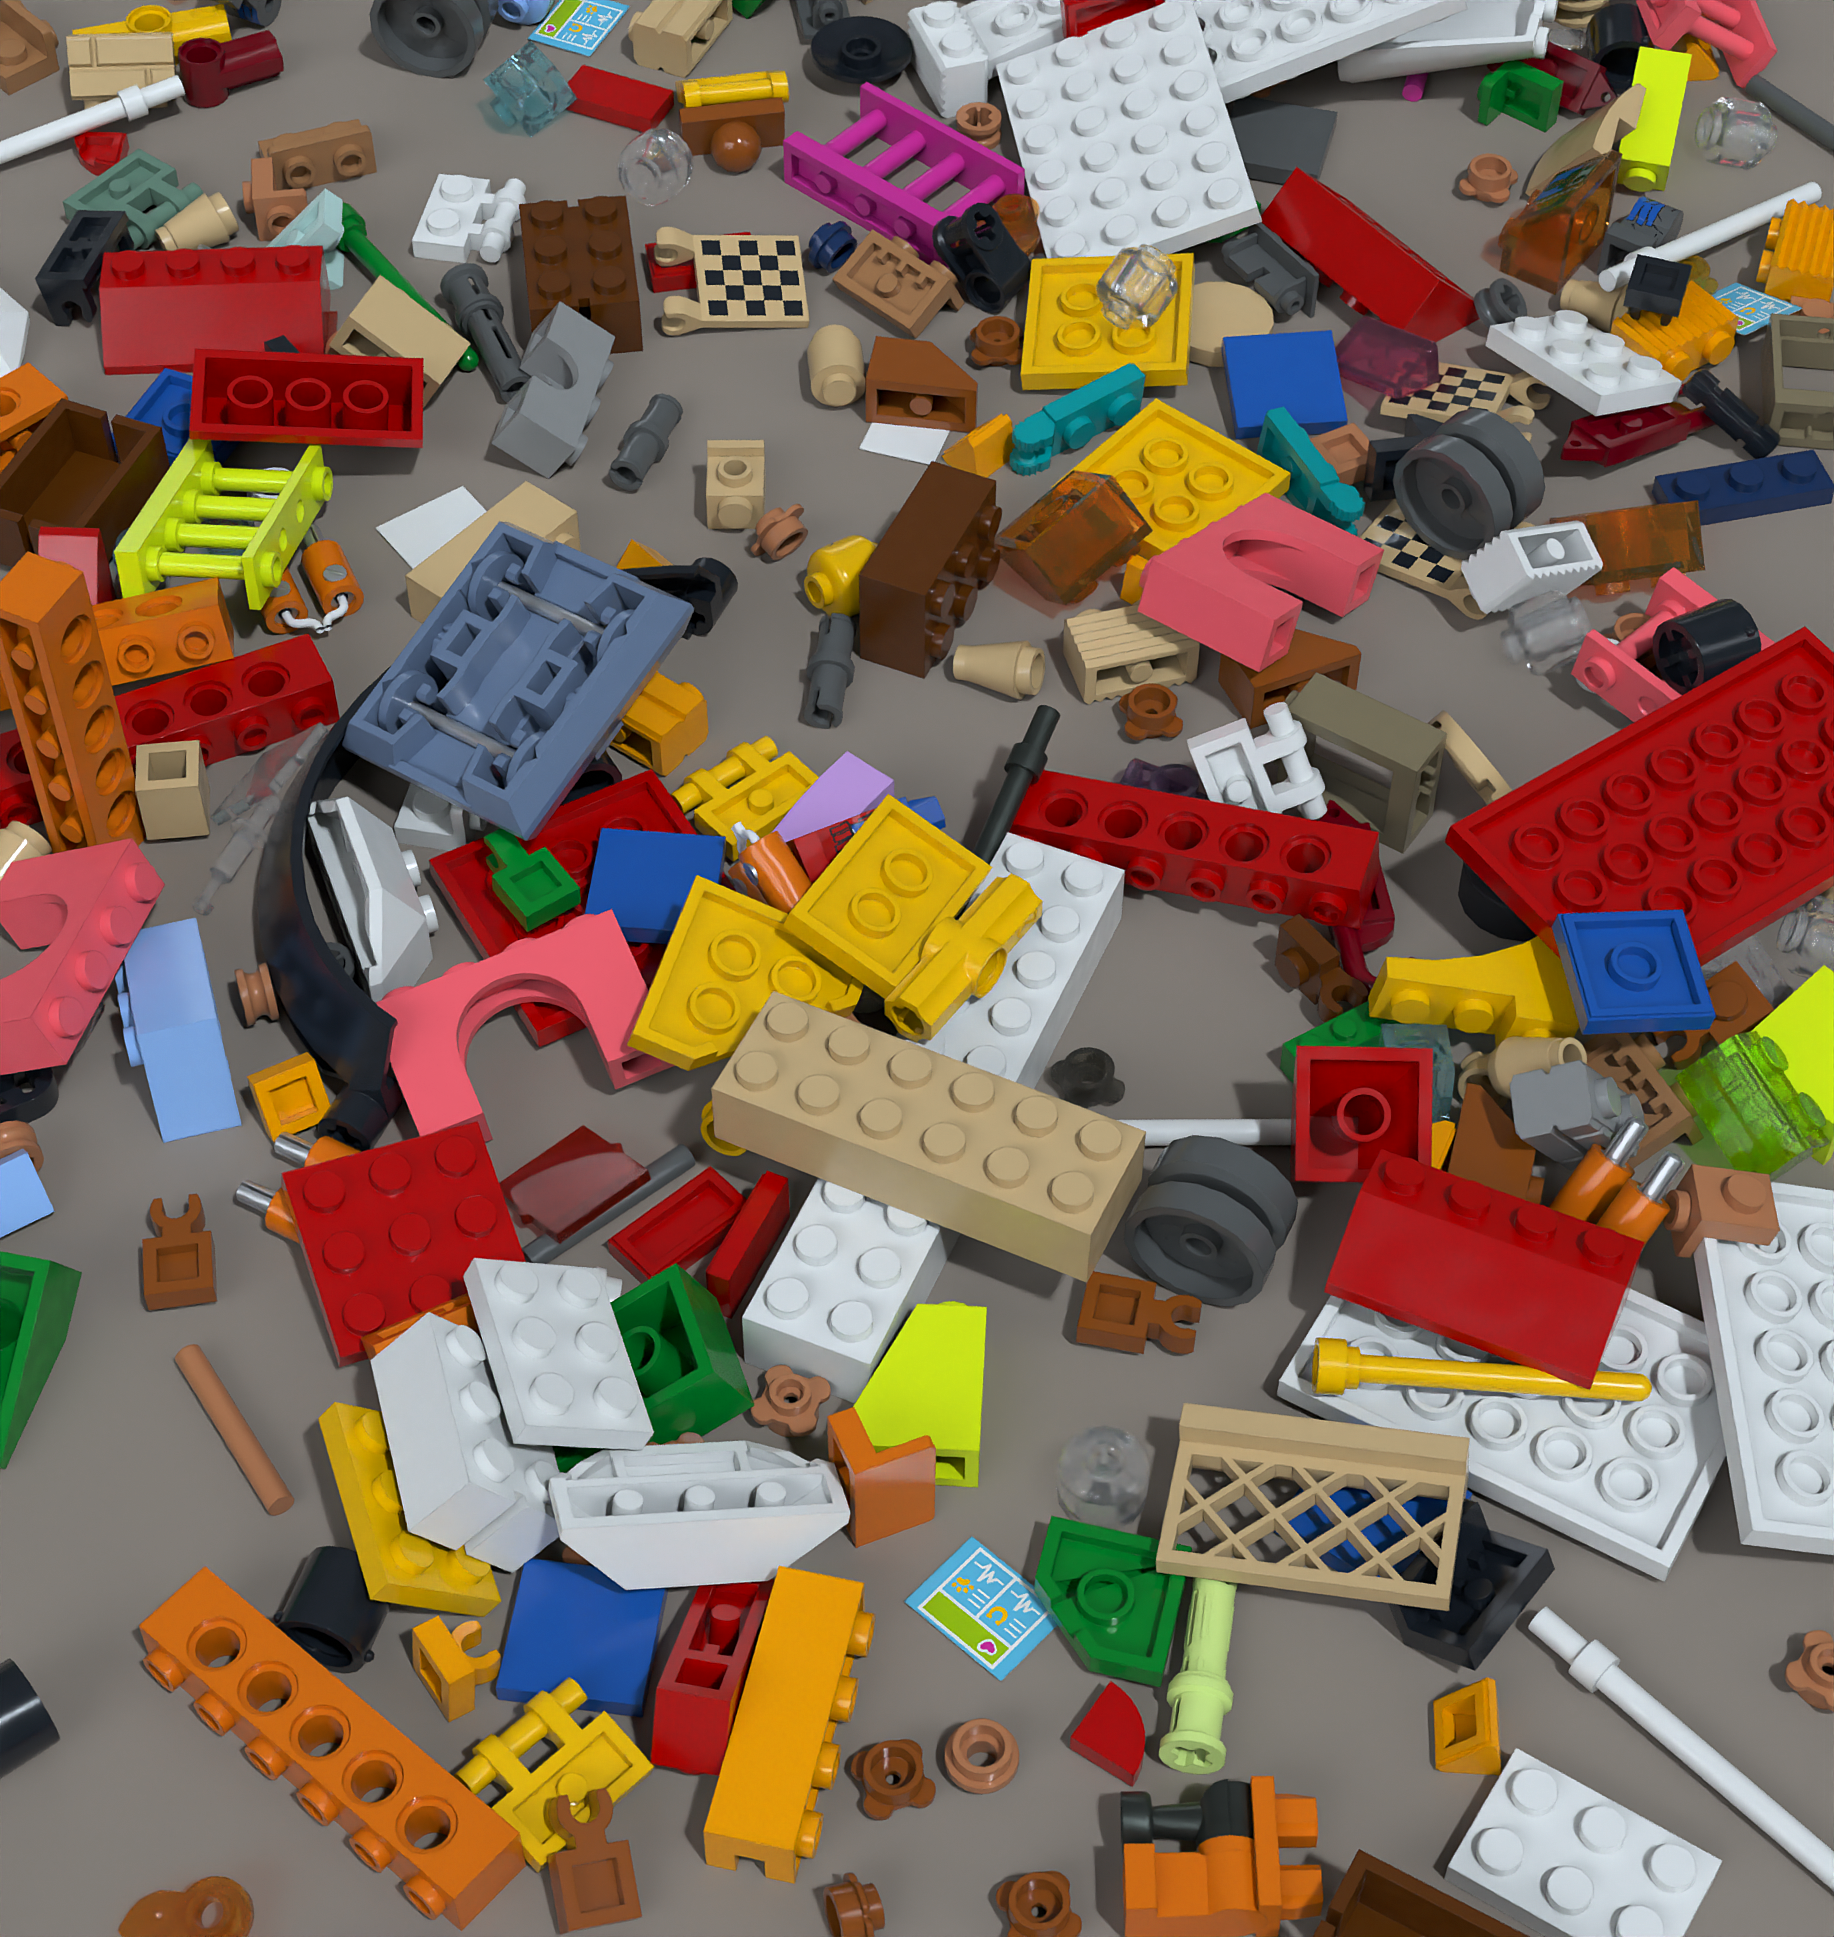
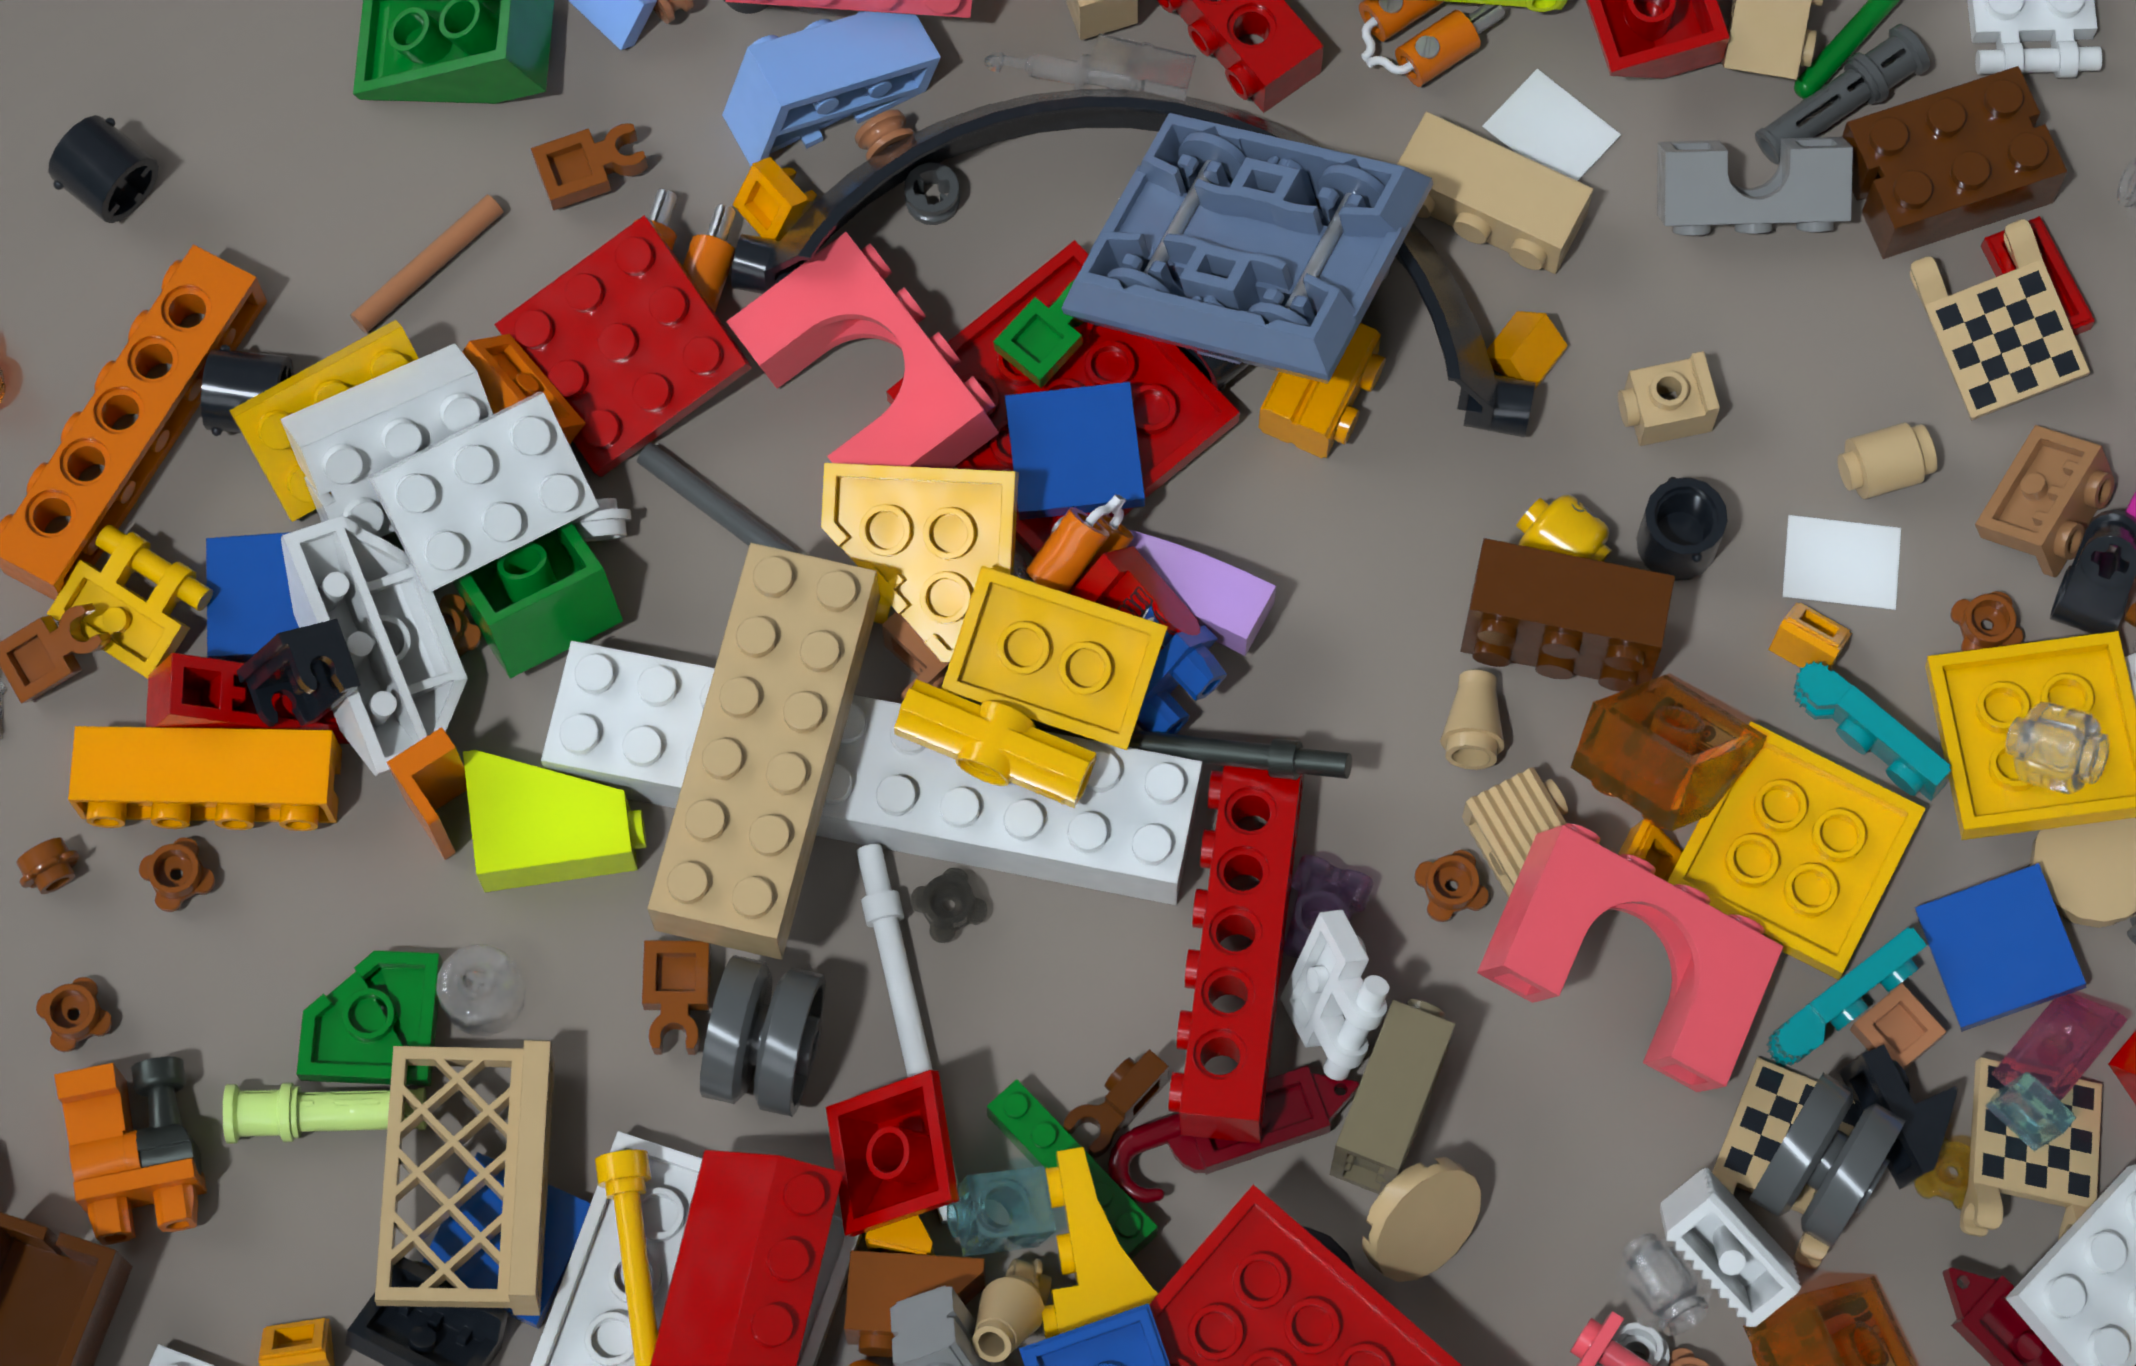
camera: 80 degrees right, 20 degrees up
(373, 894) = (1010, 208): white wedge -> none
(445, 1667) = (212, 493): light orange tile -> none
(572, 1183) = (730, 468): clear red piece -> none
(645, 442) = (1719, 294): dark grey pin -> none
(679, 1227) = (693, 569): red tile -> none
(719, 1557) = (306, 666): none -> black hinge
(749, 1242) = (671, 631): red tile -> none
(756, 801) = (1225, 525): yellow plate -> none
(780, 532) = (1612, 459): nougat plate -> none
(790, 1418) = (519, 696): nougat plate -> none
(830, 671) = (1423, 553): dark grey pin -> none
(831, 246) = (2090, 412): dark blue plate -> none
(861, 493) = (1681, 528): none -> black piece
(918, 387) = (1878, 546): dark orange slope -> none
(983, 1608) = (361, 914): sticker -> none
(984, 1737) = (197, 927): nougat plate -> none
(1112, 1735) = (247, 1047): red tile -> none
(1308, 653) = (1532, 1030): dark orange slope -> none
(1440, 371) = (2031, 1111): none -> clear light blue tile

